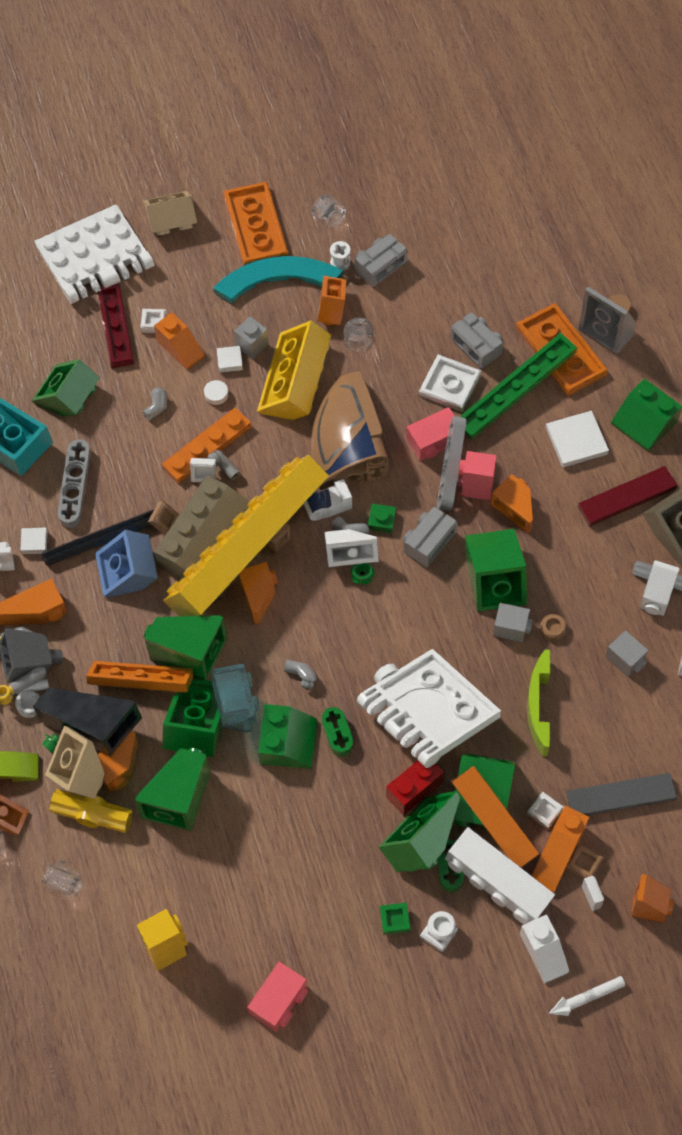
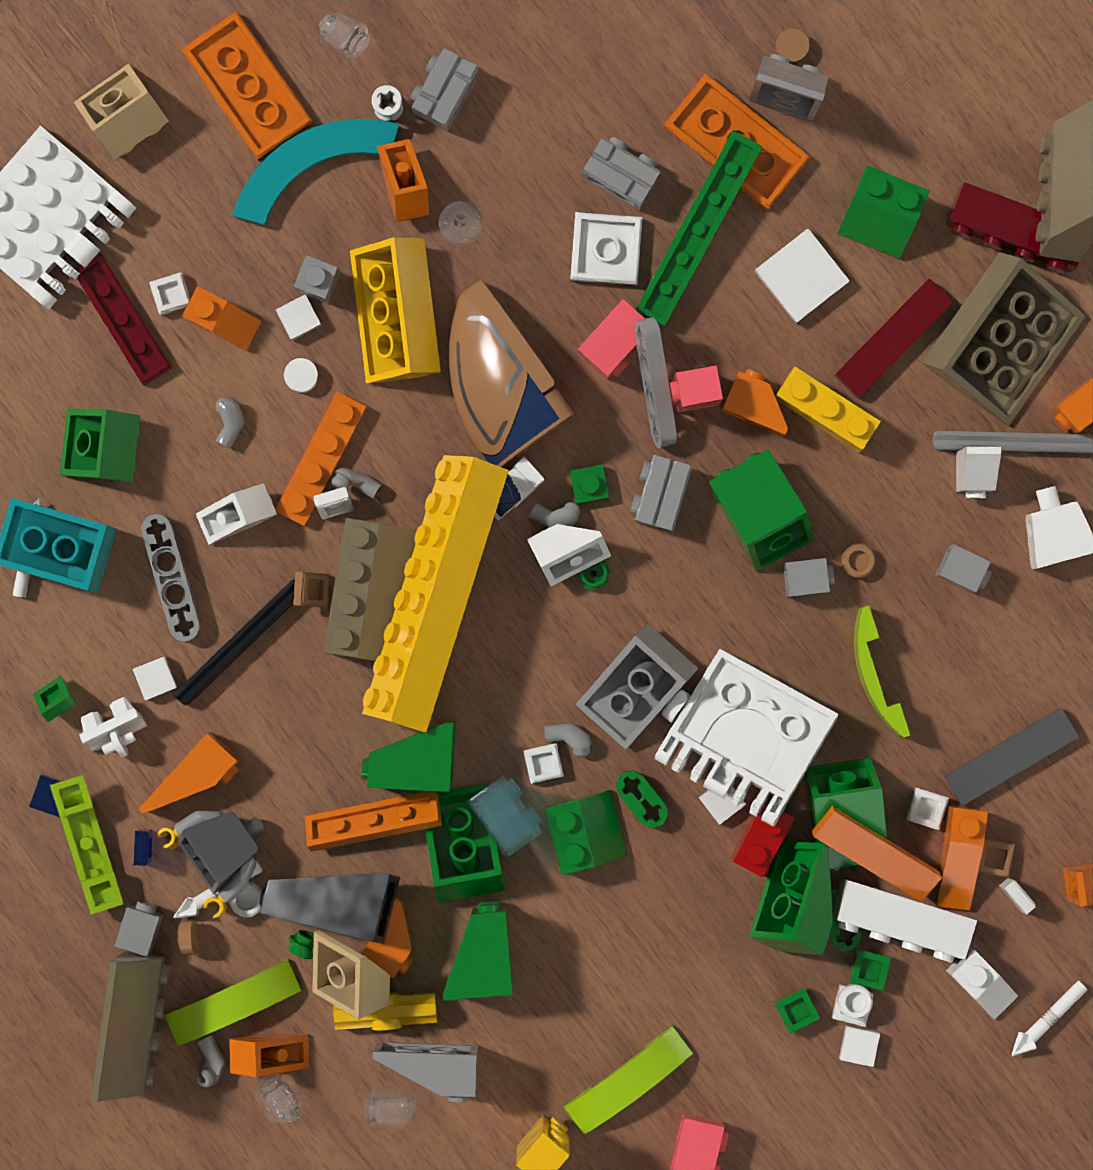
camera: 20 degrees left, 25 degrees up
(115, 858) = (438, 1067): none -> light grey slope
(126, 564) = (290, 672): medium blue slope -> none
(136, 455) = (236, 513): none -> white slope
(247, 925) = (629, 1081): none -> lime slope
(258, 588) = (474, 647): orange slope -> none
(276, 685) = (543, 763): none -> white tile
(362, 651) = (636, 686): none -> light grey slope
(394, 754) = (720, 808): none -> white tile
(433, 964) = (859, 1046): none -> white tile
(462, 908) = (869, 969): none -> green plate
(564, 520) = (827, 410): none -> yellow brick

